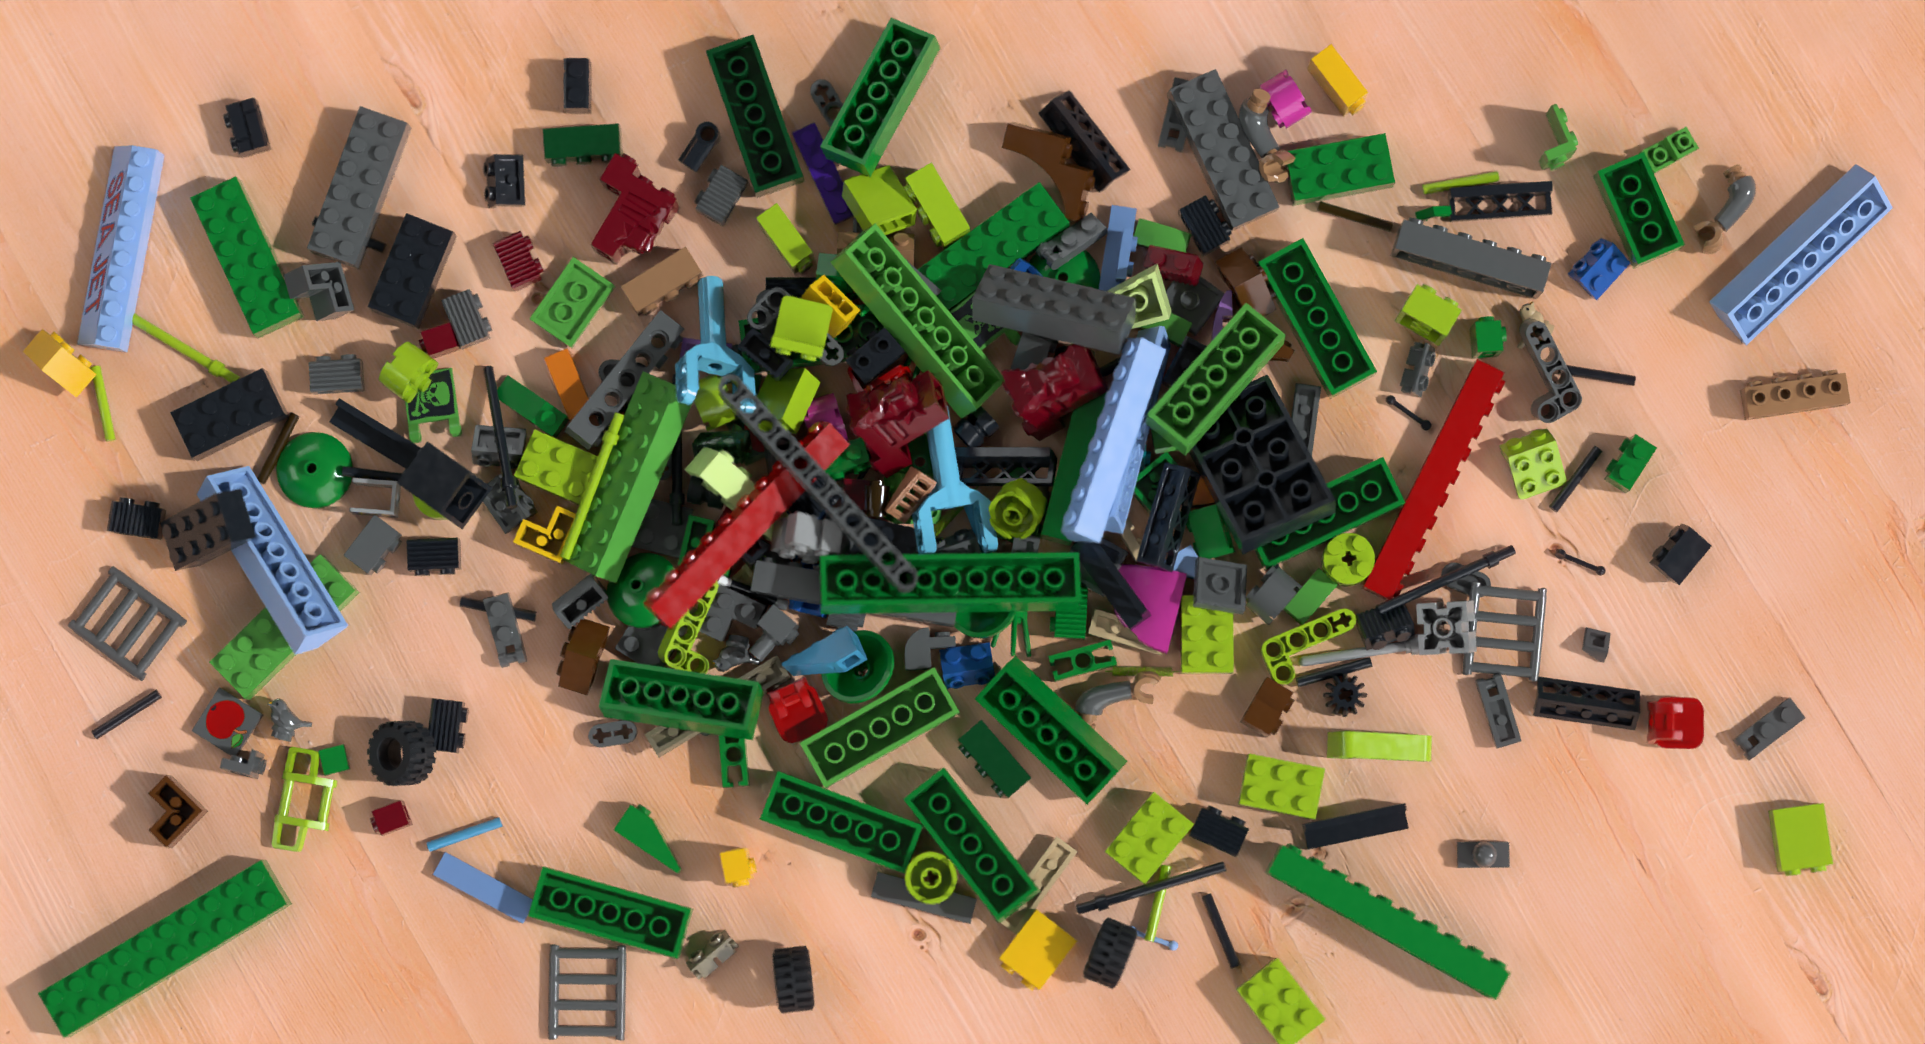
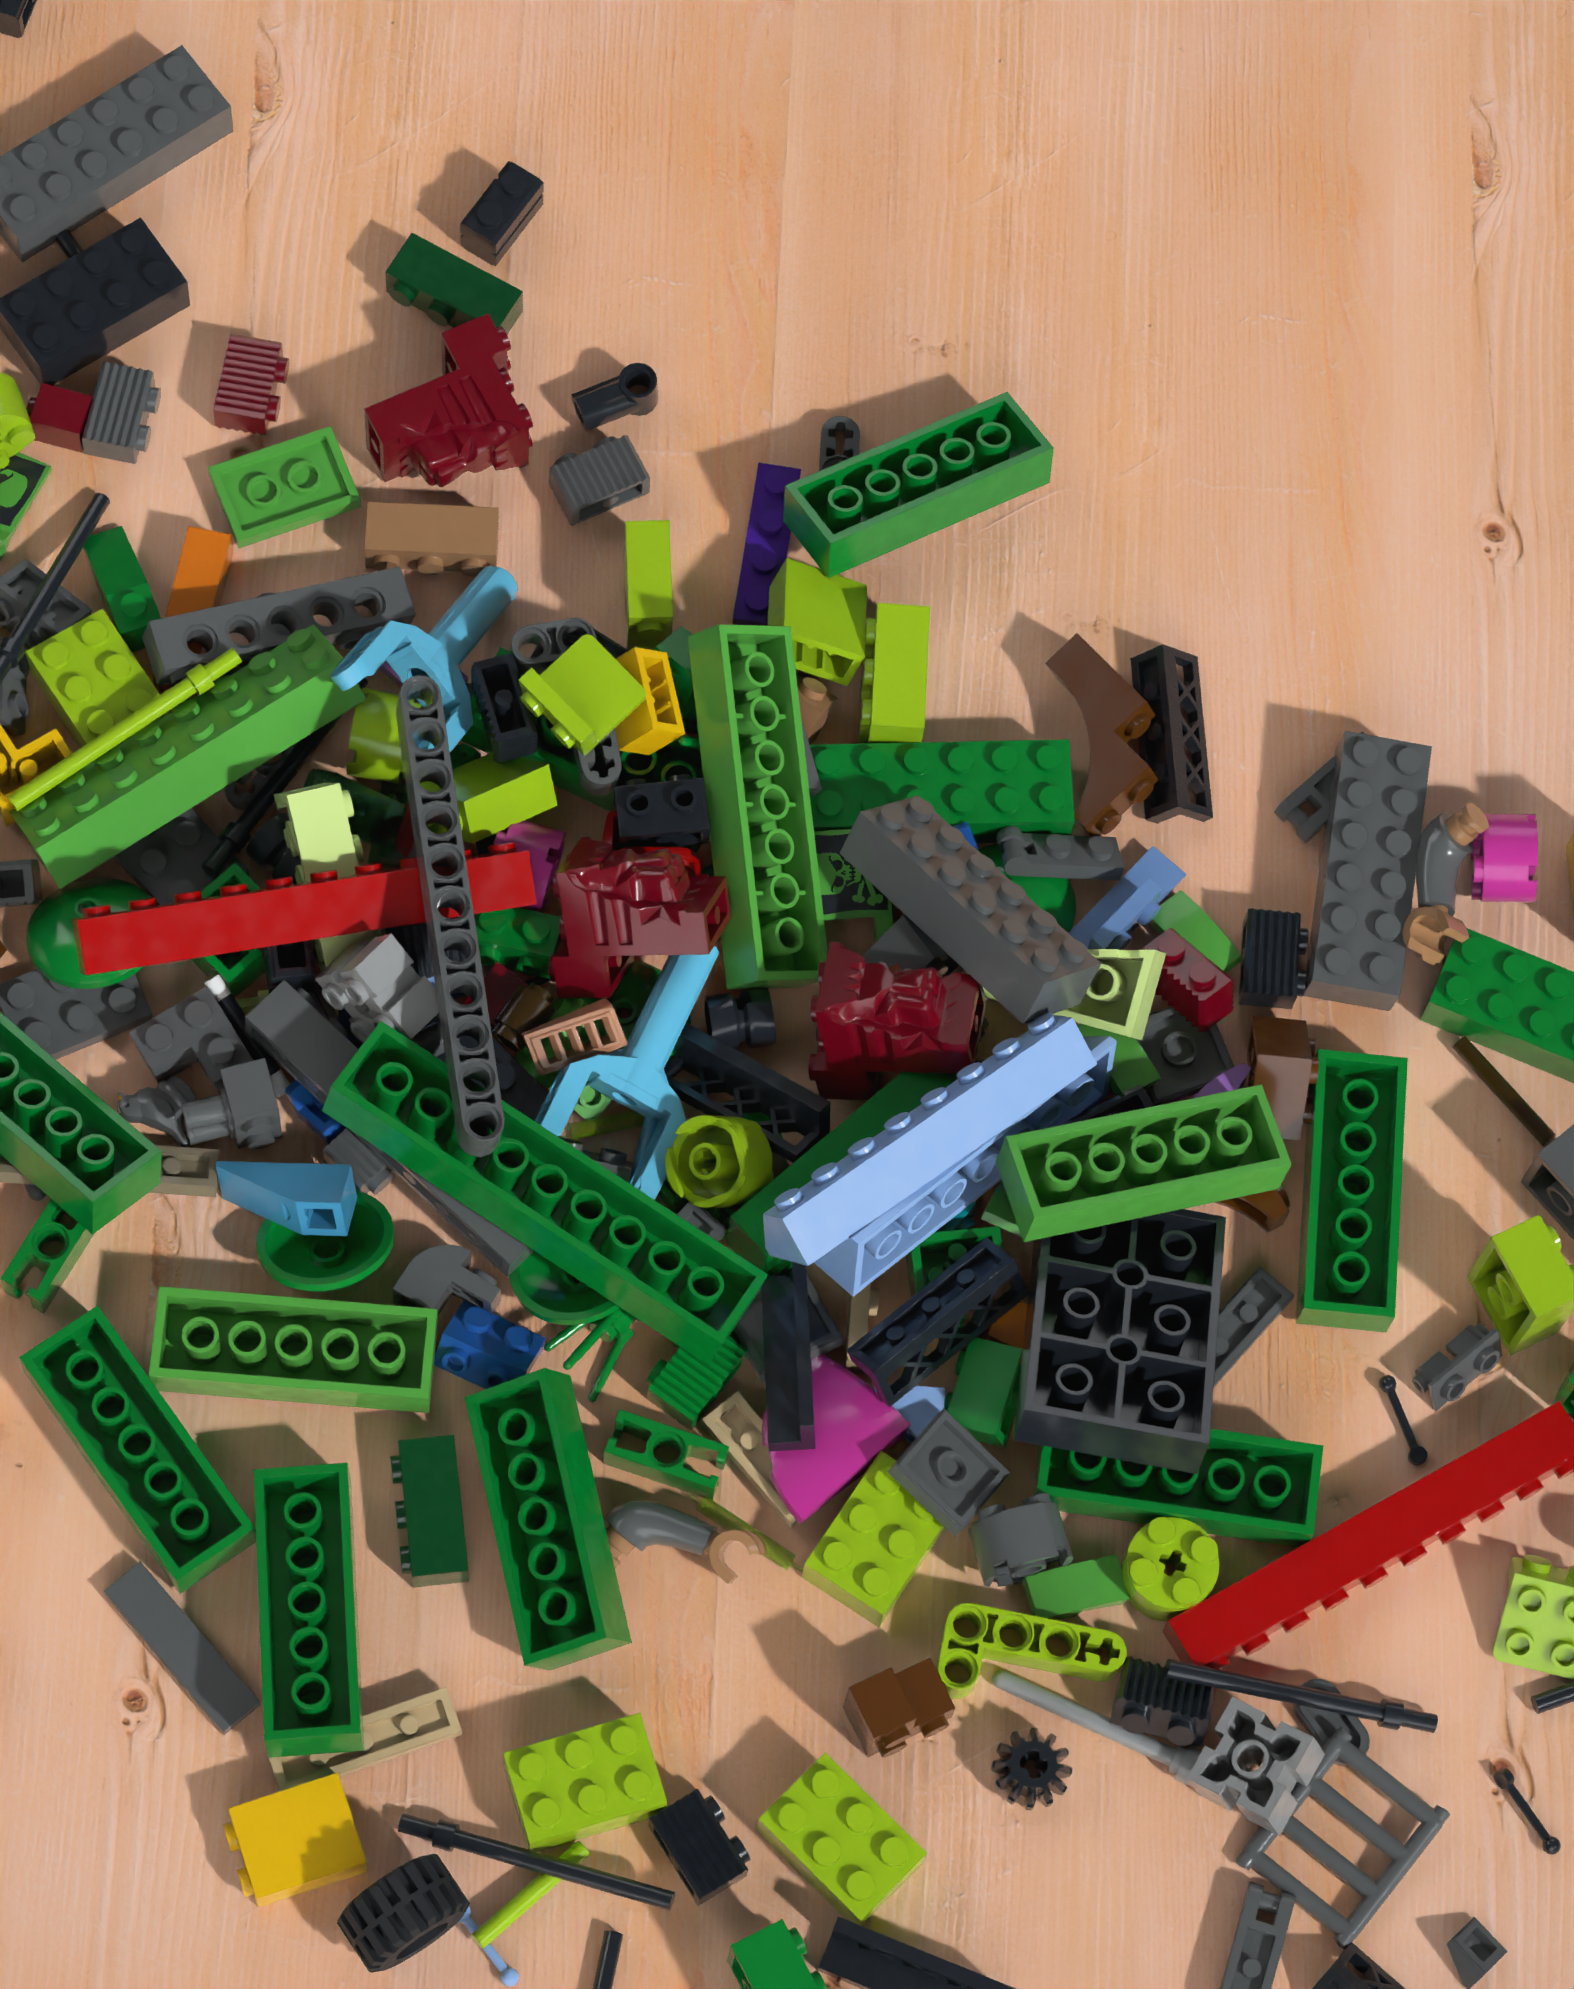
camera: 20 degrees right, 15 degrees down
(504, 180) = (310, 272): black bracket -> none
(684, 644) = (129, 1015): lime beam -> none
(755, 116) = (721, 404): dark green brick -> none
(797, 711) = (191, 1241): red piece -> none
(938, 865) = (200, 1592): lime brick -> none
(1330, 672) = (1025, 1721): black bar -> none
(1379, 746) = (998, 1848): lime beam -> none

